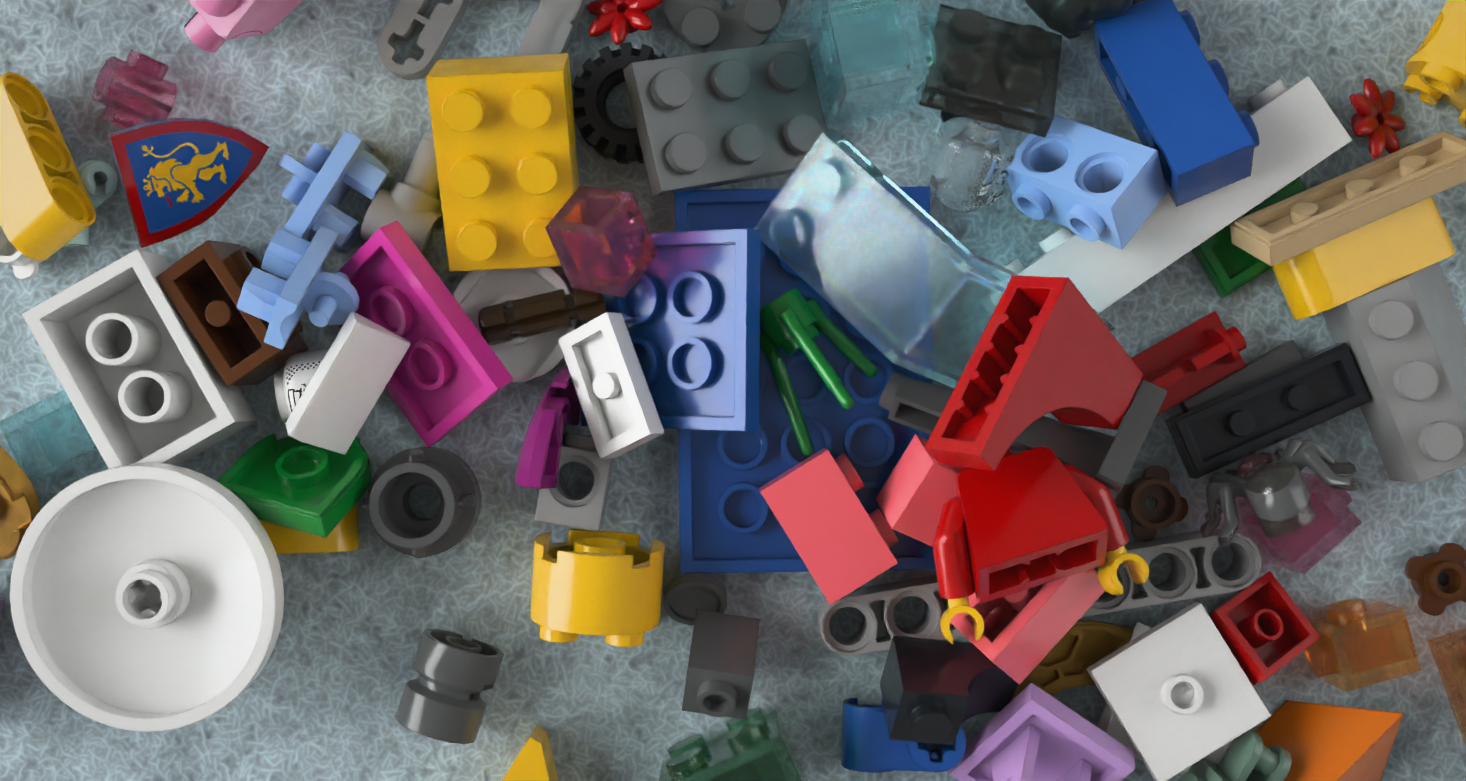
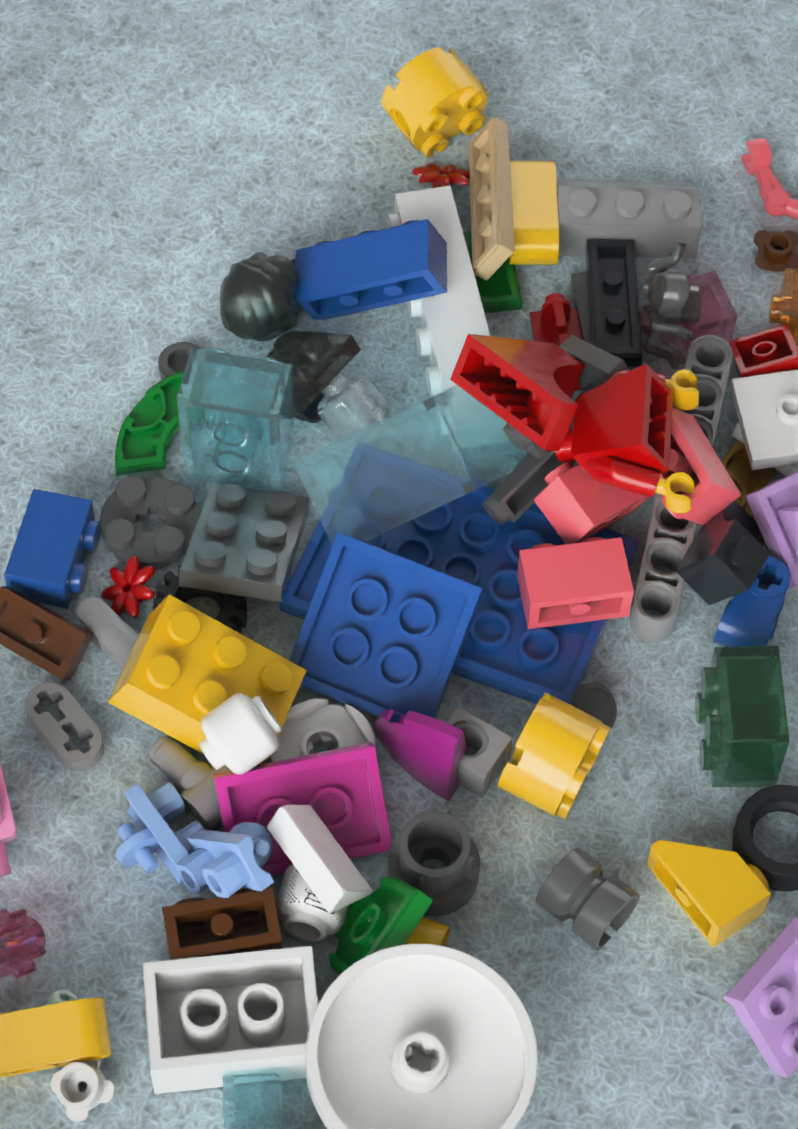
camera: 70 degrees left, 30 degrees down
(181, 172) = (91, 930): shield -> none
(429, 234) = (239, 733): none -> white head
(539, 314) = (330, 709): dark brown axle -> none
(602, 240) = (299, 636): clear pink brick -> none
(611, 385) = (406, 681): white plate -> none
(721, 665) = (650, 699): dark grey brick -> none
(790, 325) = (422, 549): green plant -> none
(1087, 181) = (403, 338): light blue brick -> none

